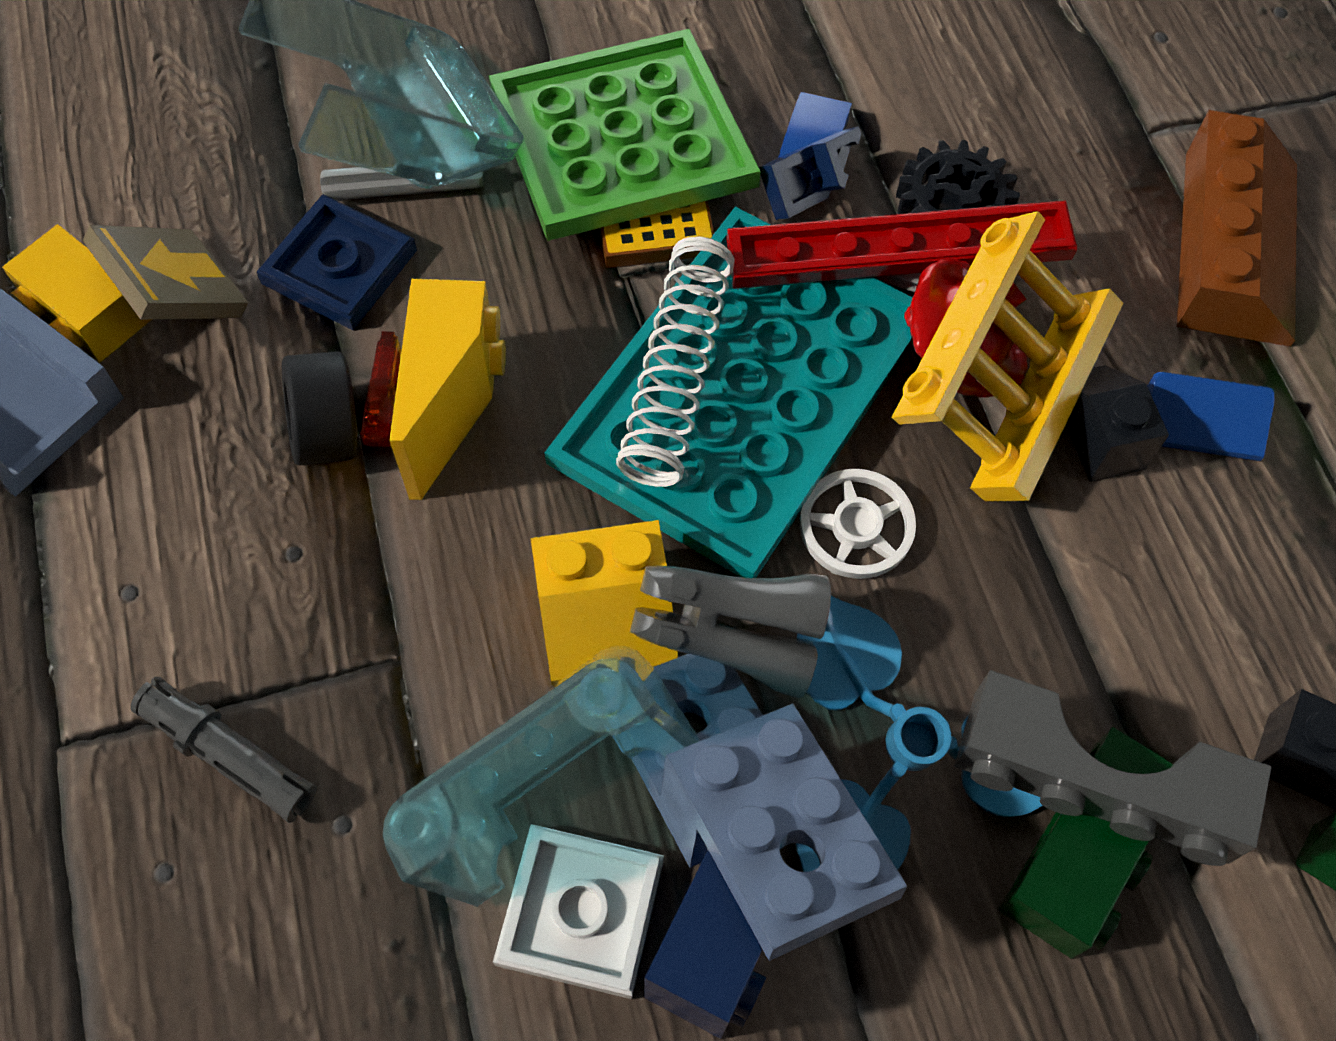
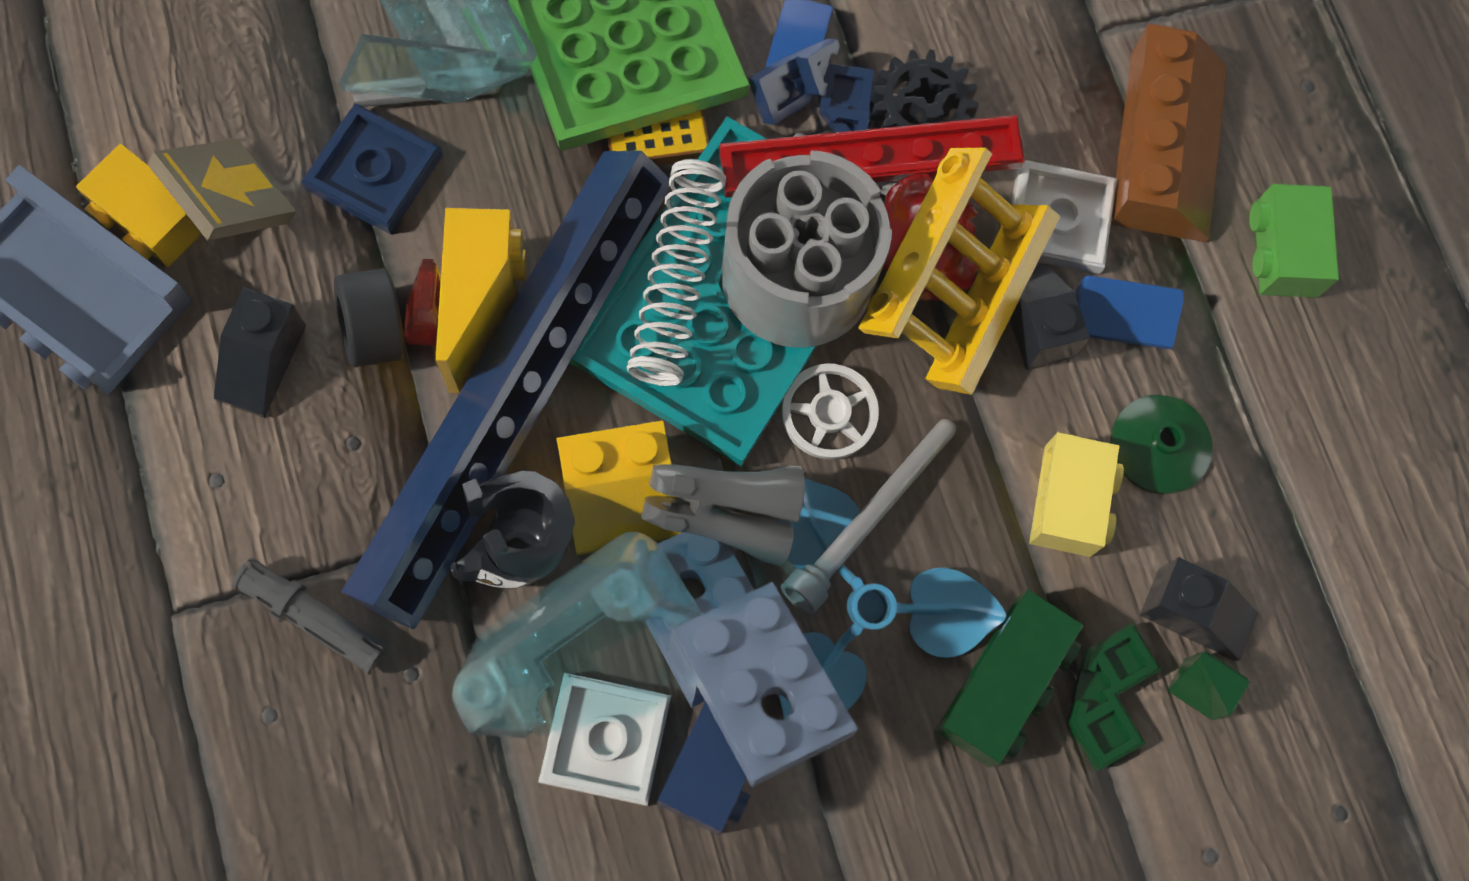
camera: 10 degrees left, 10 degrees up
(187, 445) = (256, 351): none -> black slope
(467, 501) = (508, 387): none -> dark blue brick
(488, 654) = (527, 532): none -> black piece
(826, 326) = (794, 289): none -> light grey brick
(838, 719) = (809, 585): none -> light grey piece
(869, 188) = (847, 97): none -> dark blue slope
(1148, 322) = (1084, 211): none -> white tile
(1162, 620) = (1076, 495): none -> light yellow brick
(1203, 803) = (953, 606): dark grey arch -> none
(1216, 902) = (1095, 710): none -> dark green tile
(1247, 584) = (1147, 459): none -> dark green dish

